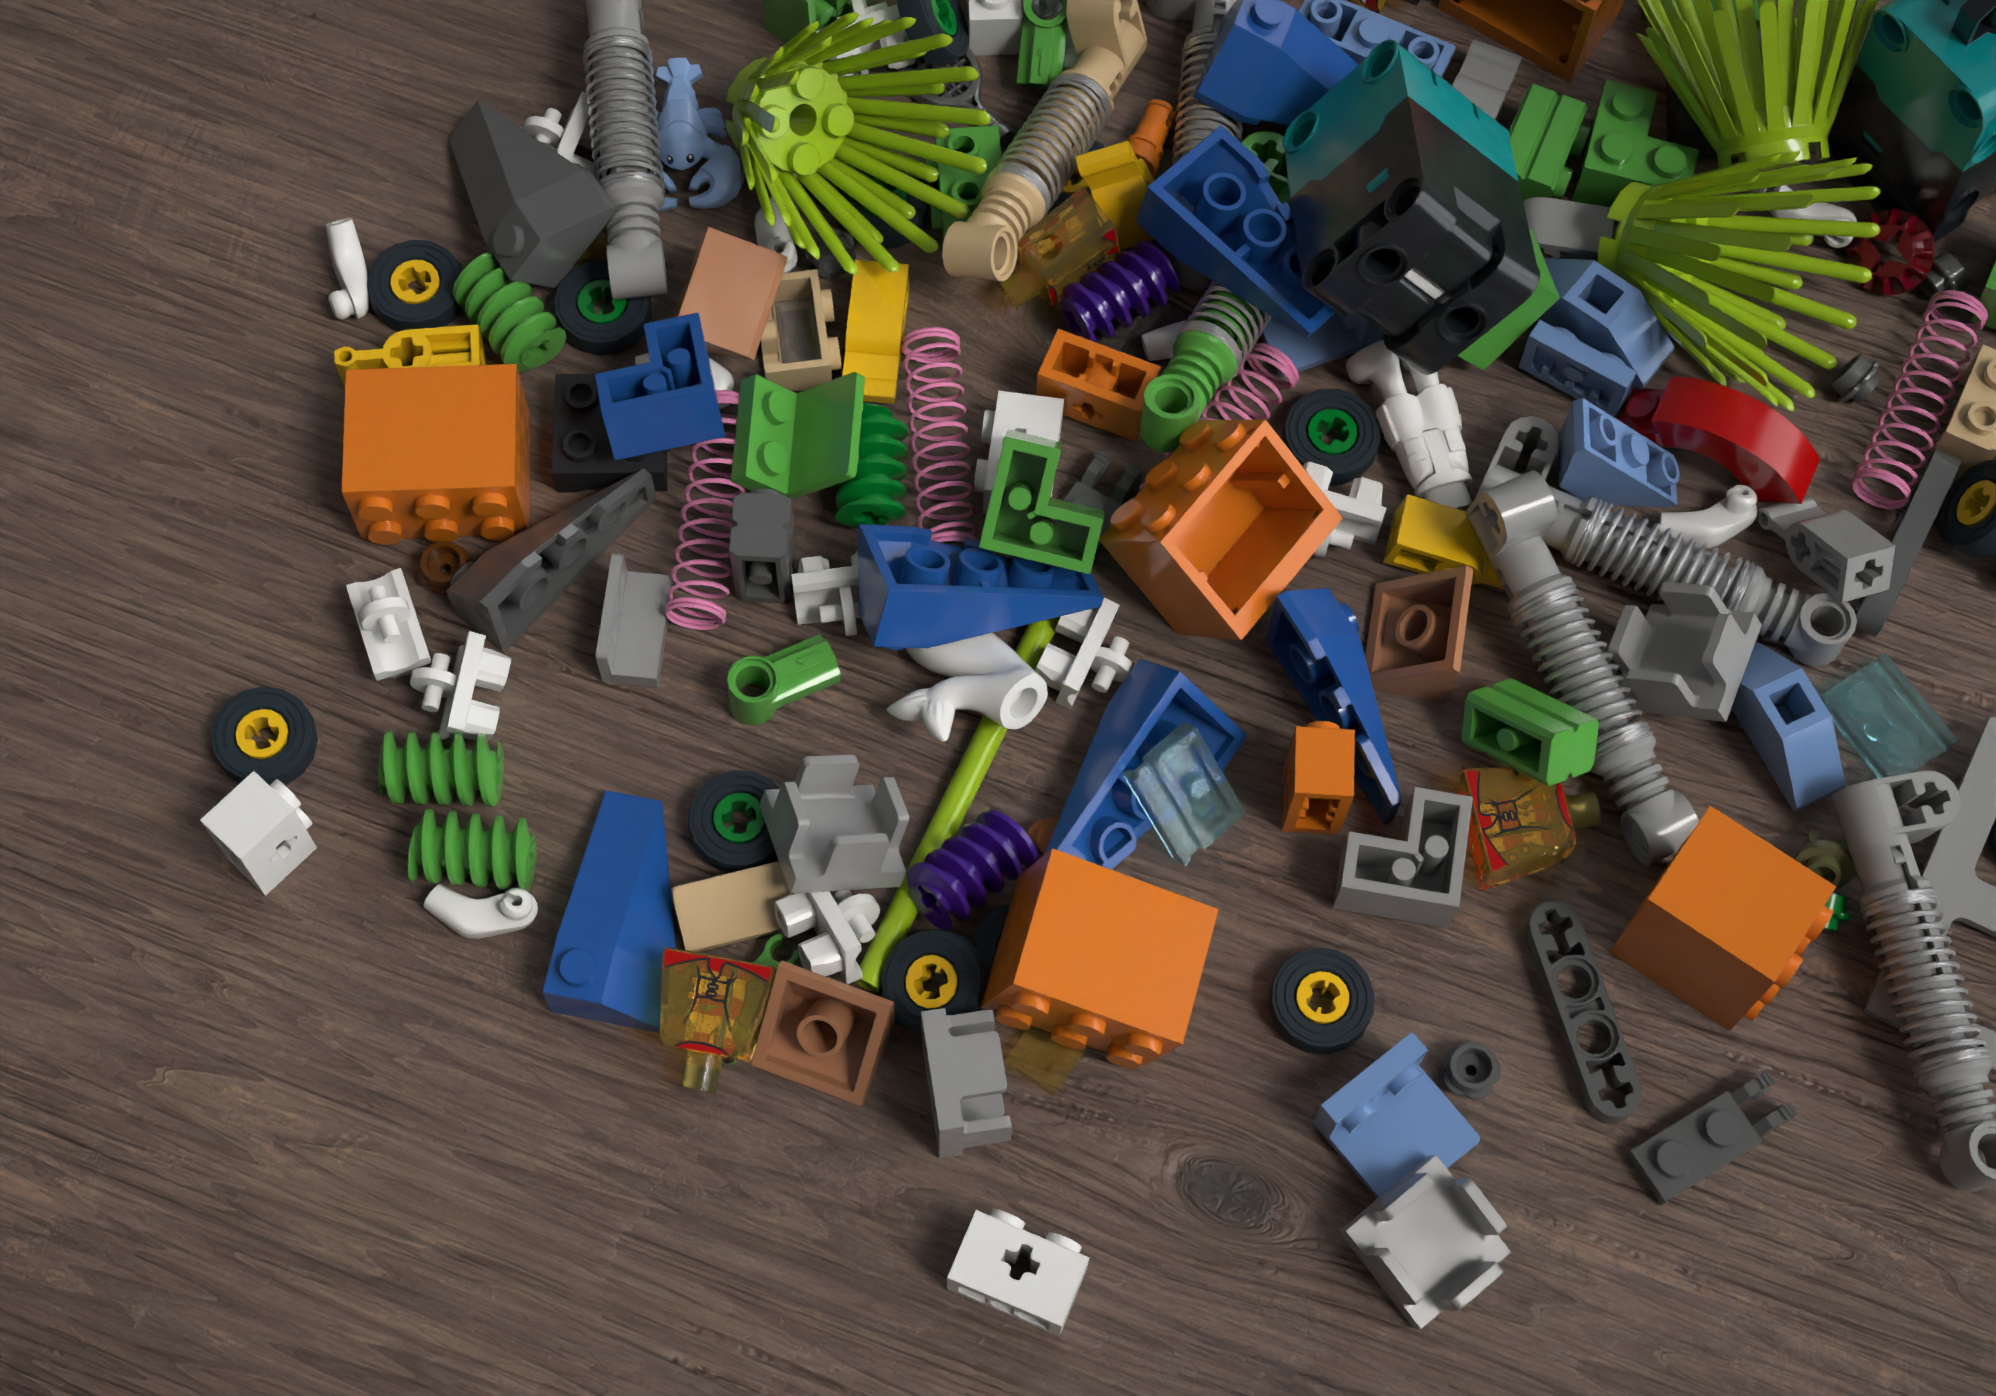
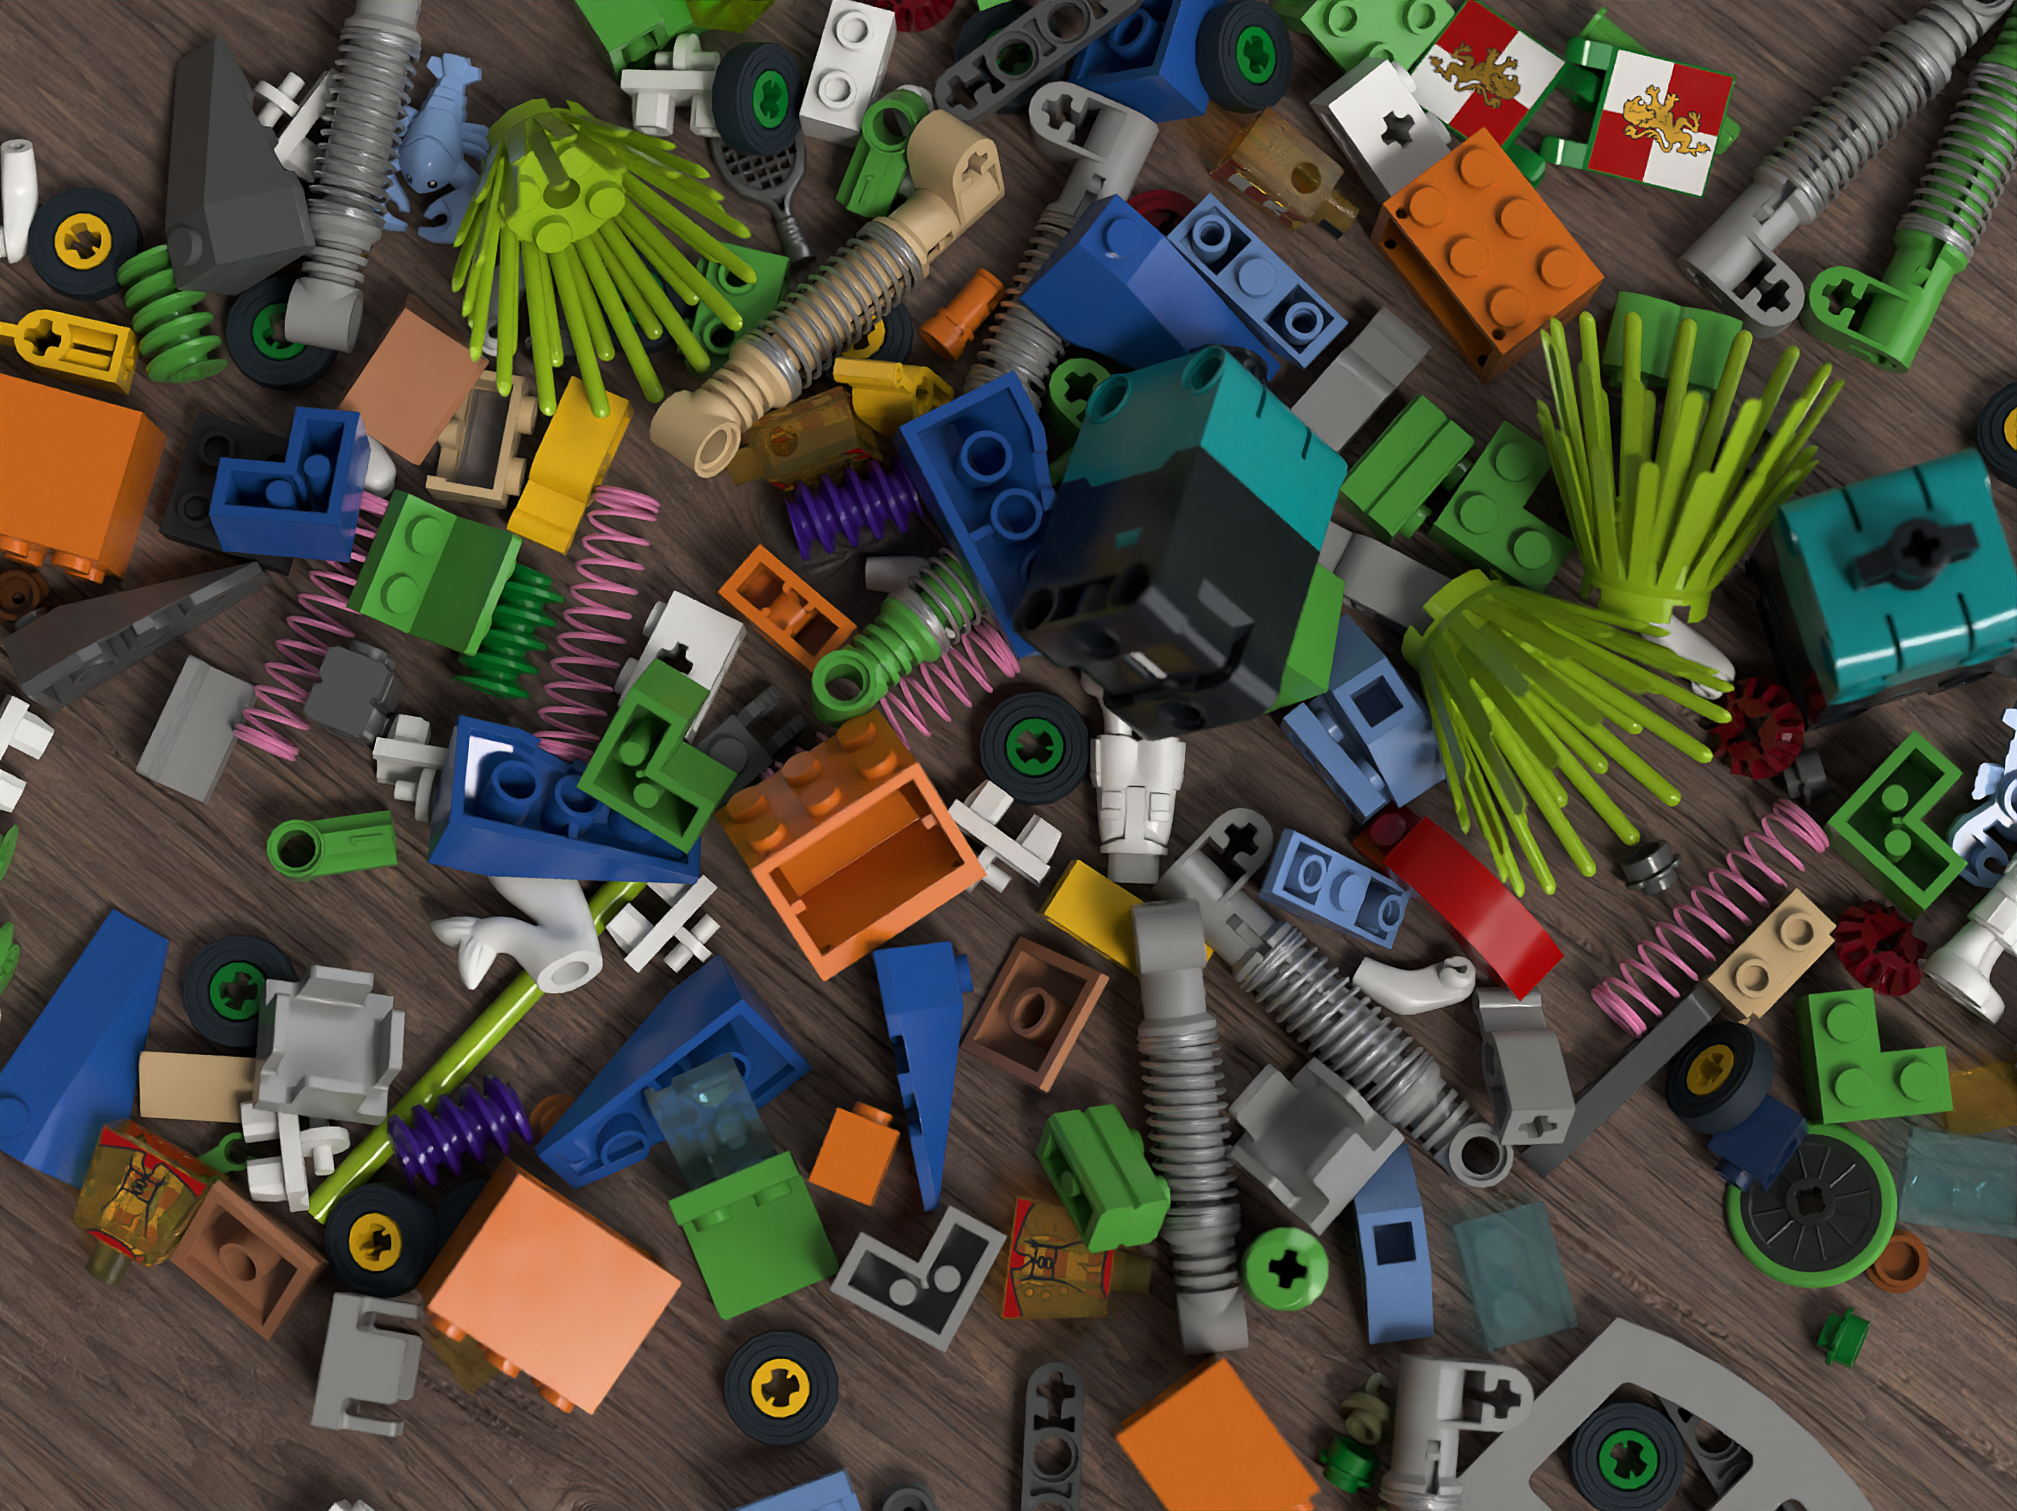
camera: 20 degrees right, 15 degrees up
(1251, 876) = (756, 1235): none -> bright green bracket
(1709, 756) = (1303, 1252): none -> bright green piece

